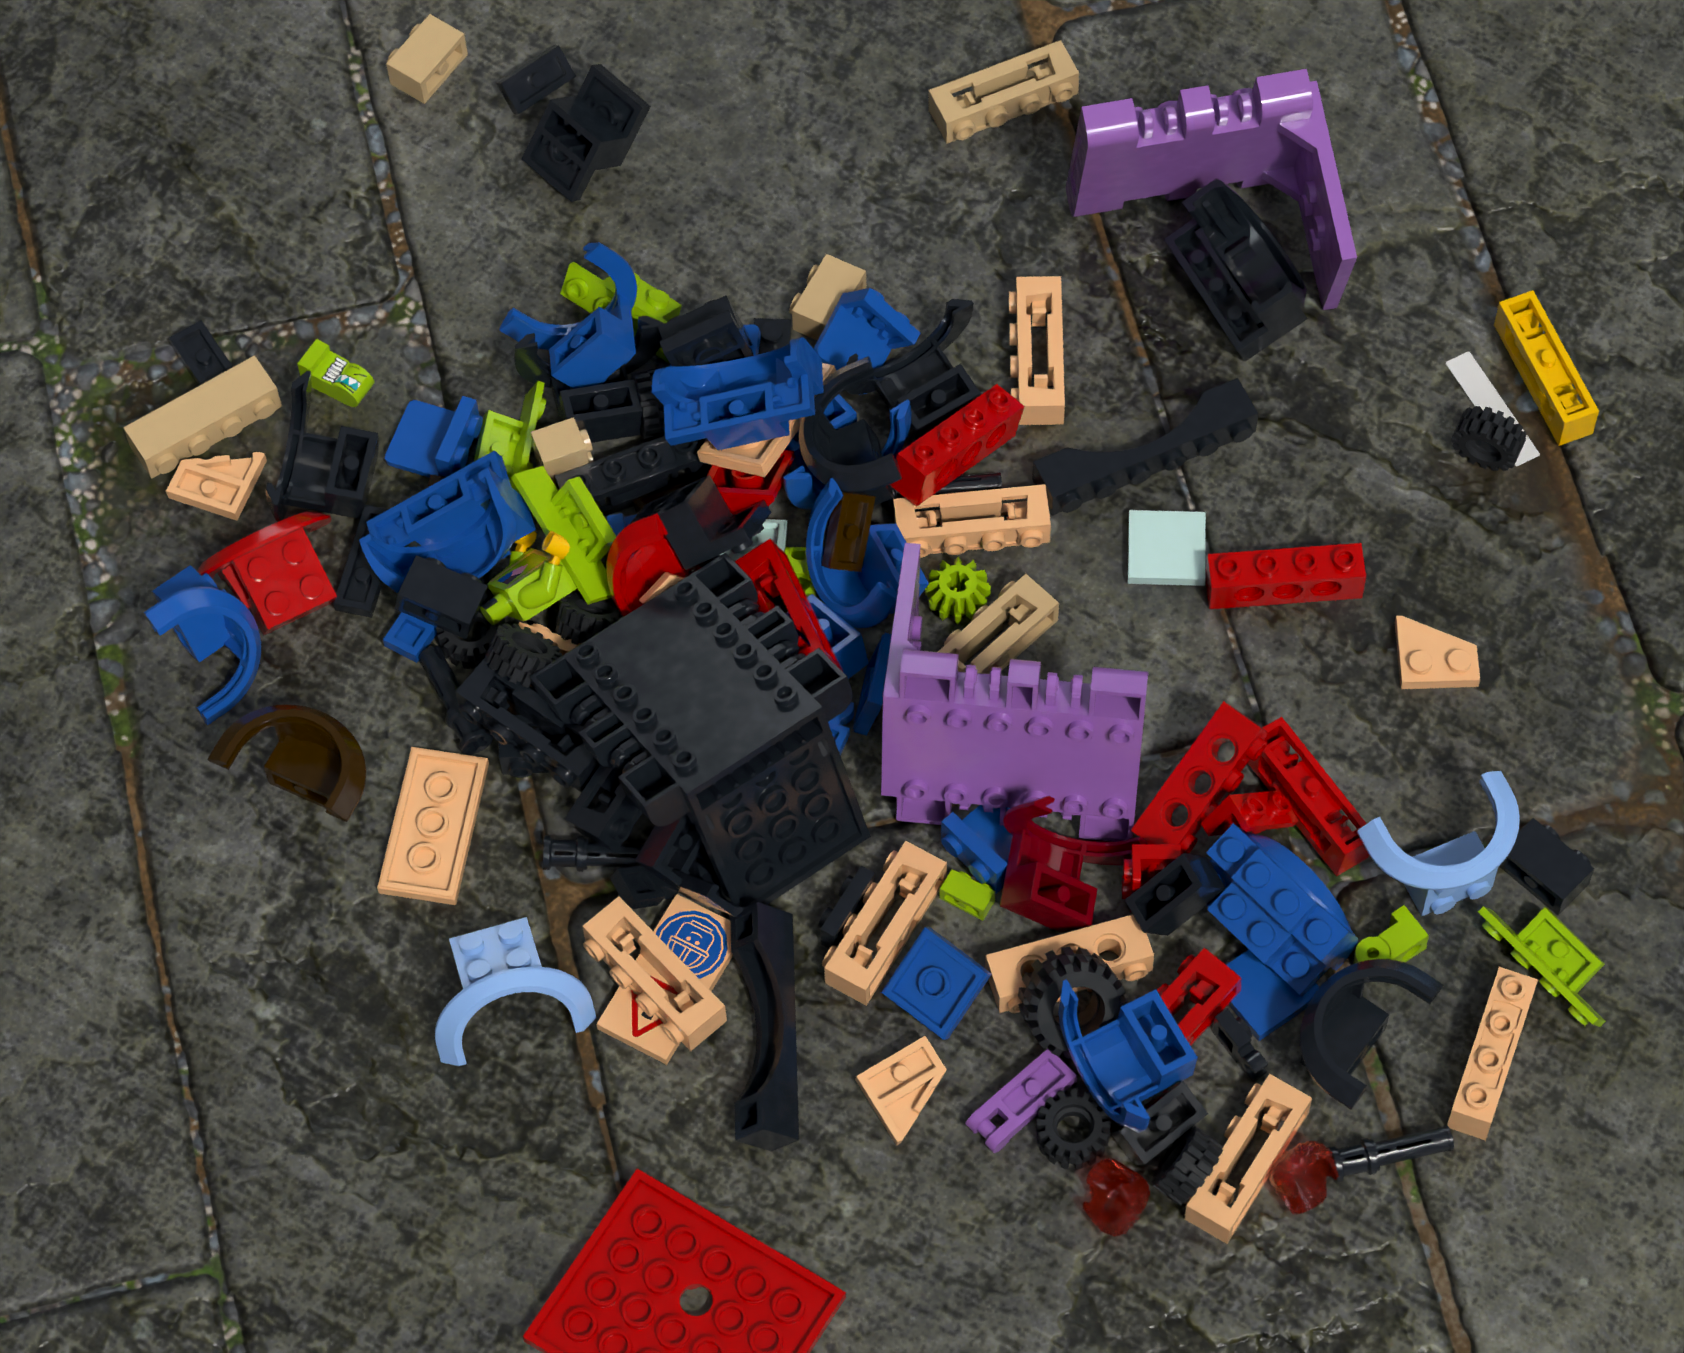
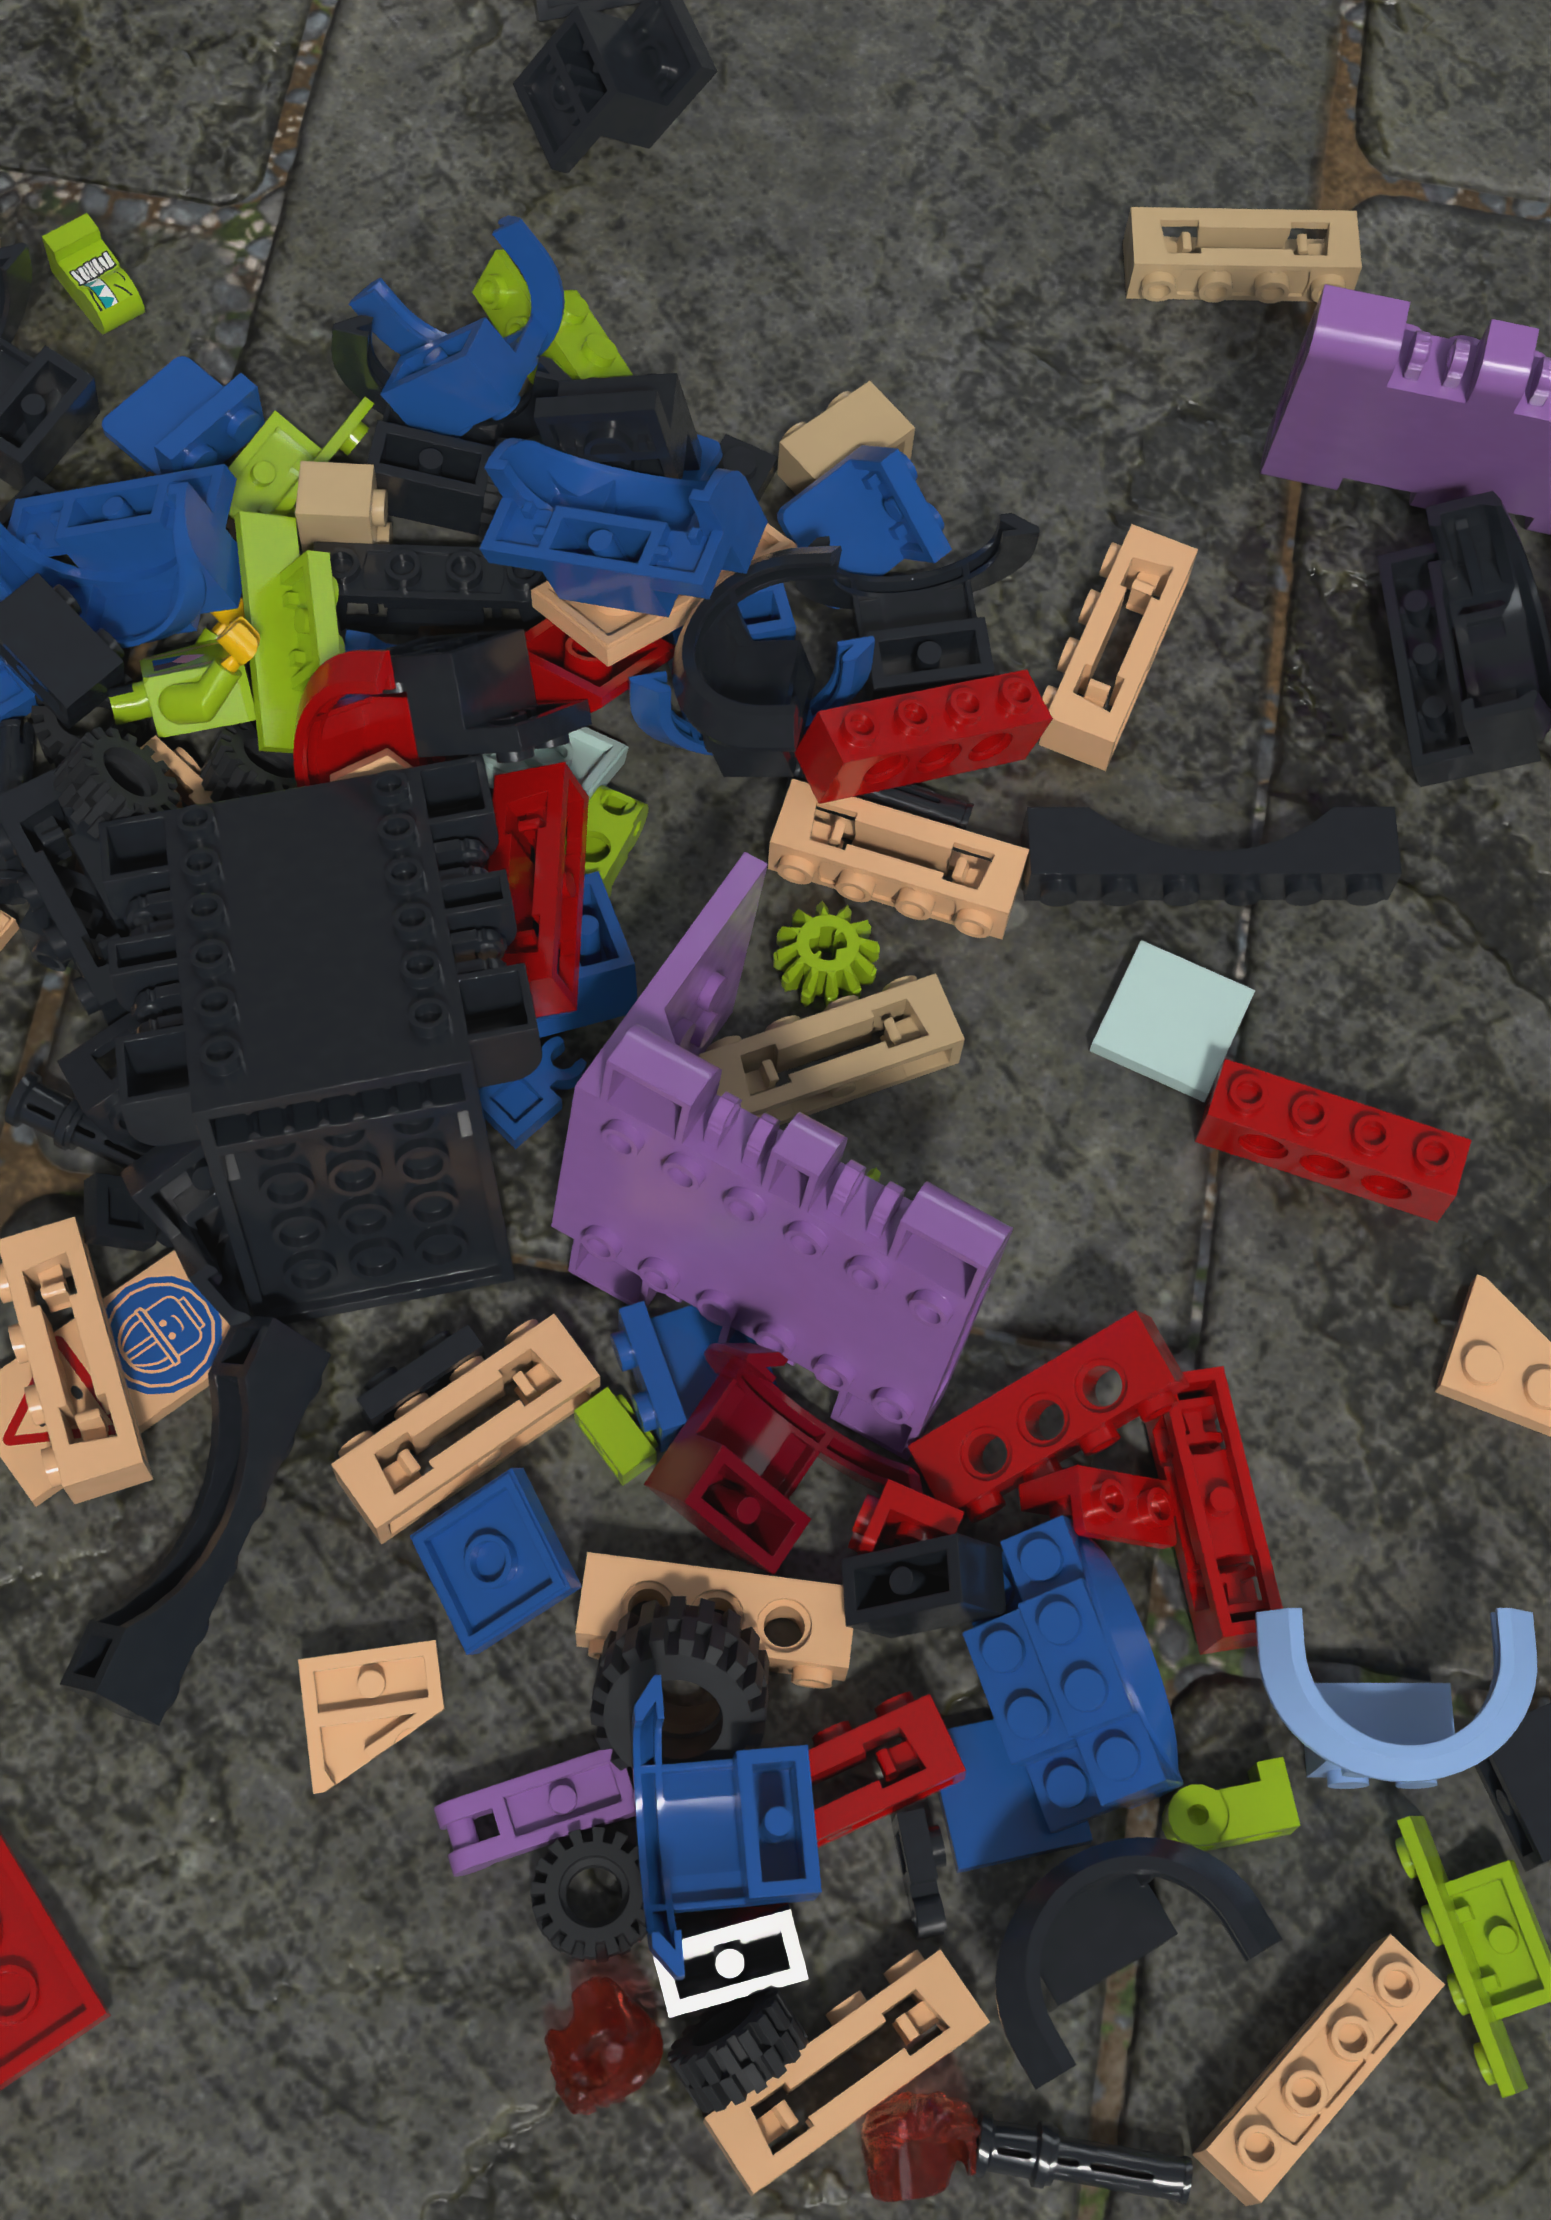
camera: 15 degrees right, 5 degrees up
(849, 532) = (691, 799): dark brown plate -> none
(863, 596) = (670, 866): blue piece -> none

